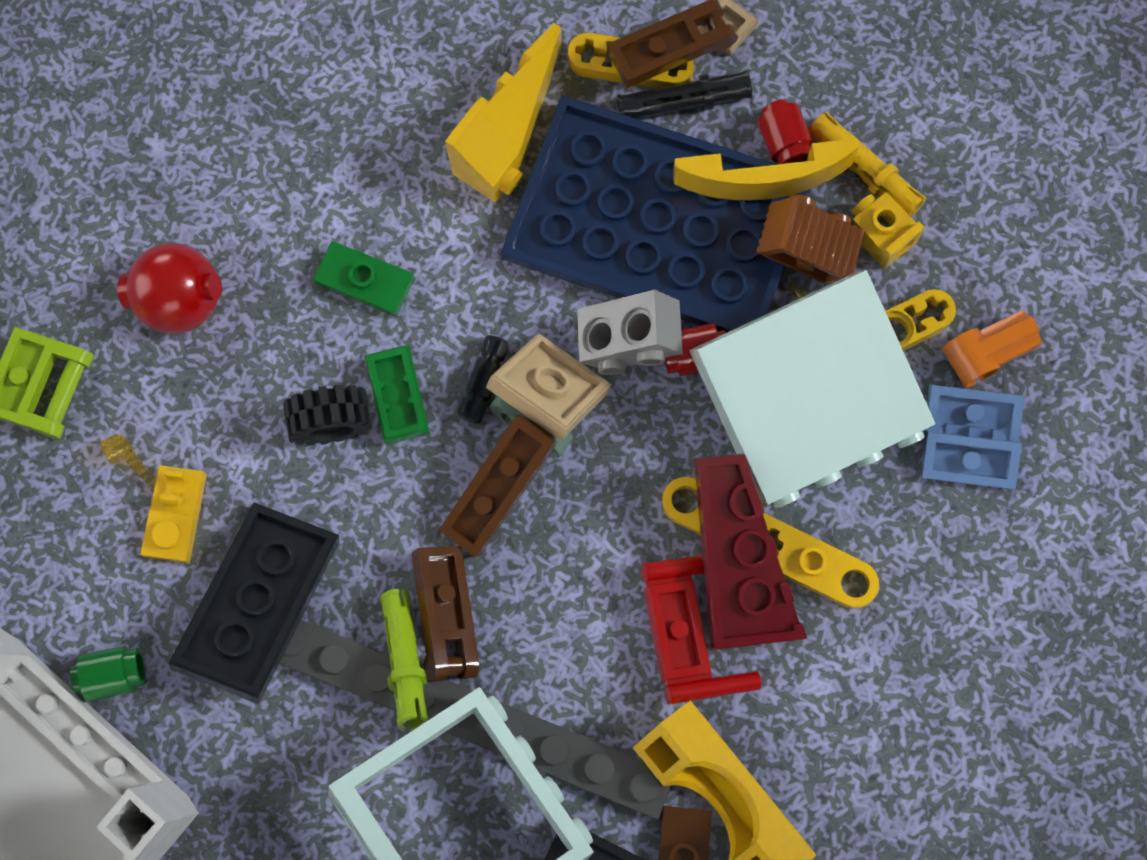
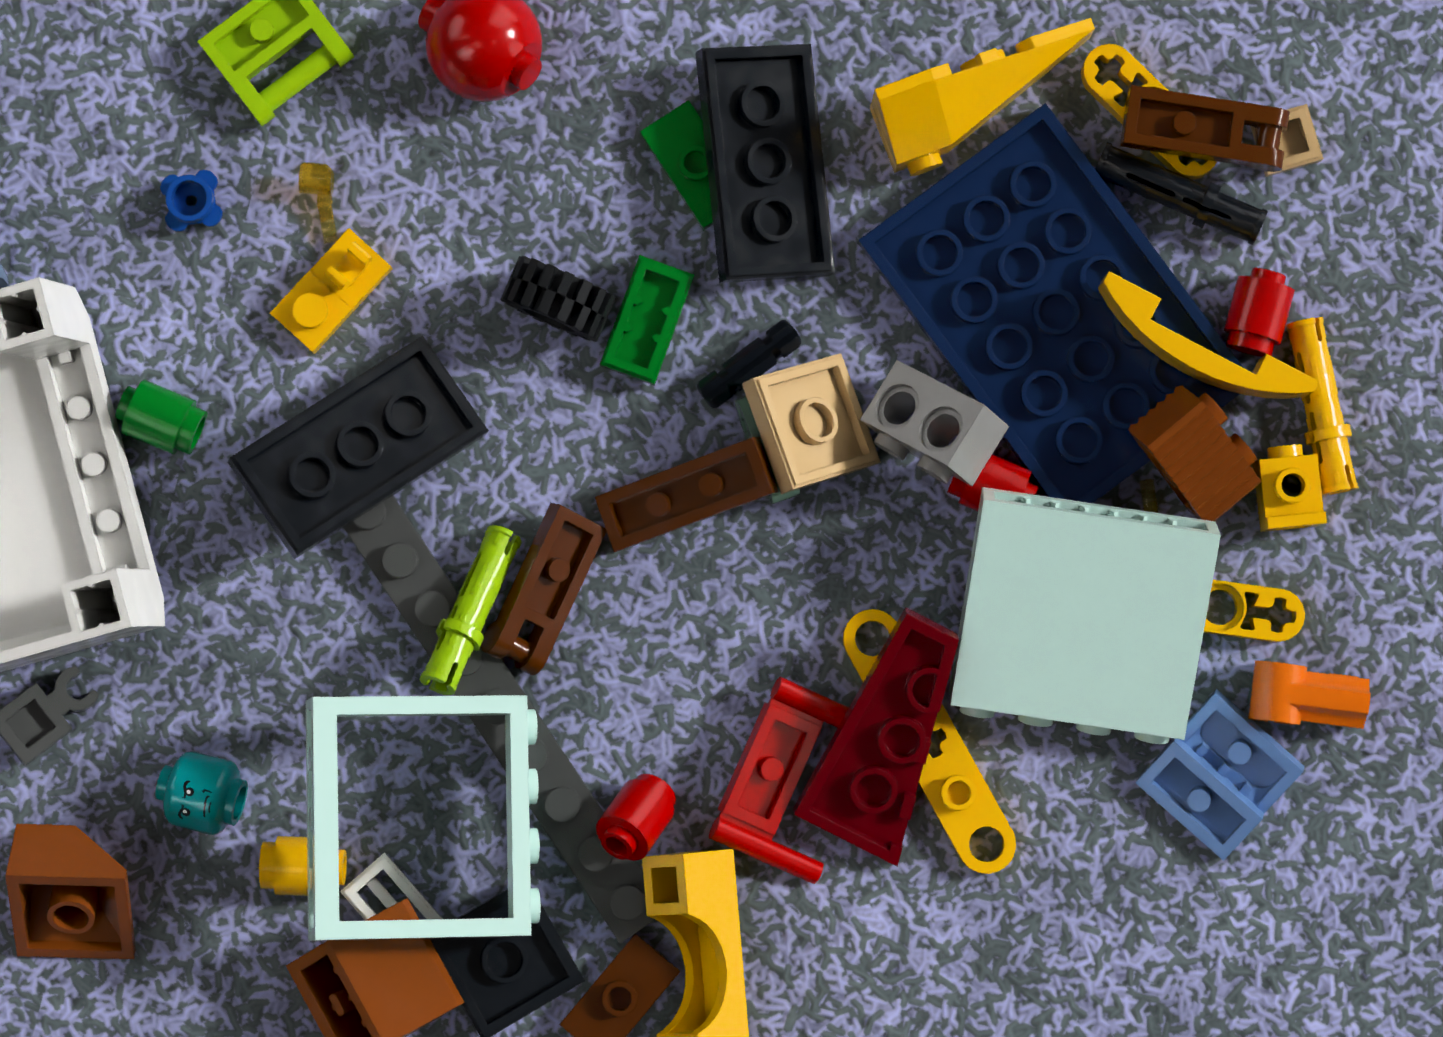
camera: 25 degrees right, 10 degrees up
(28, 512) = (179, 189): none -> blue plate
(407, 246) = (765, 162): none -> black tile
(610, 724) = (636, 817): none -> red brick

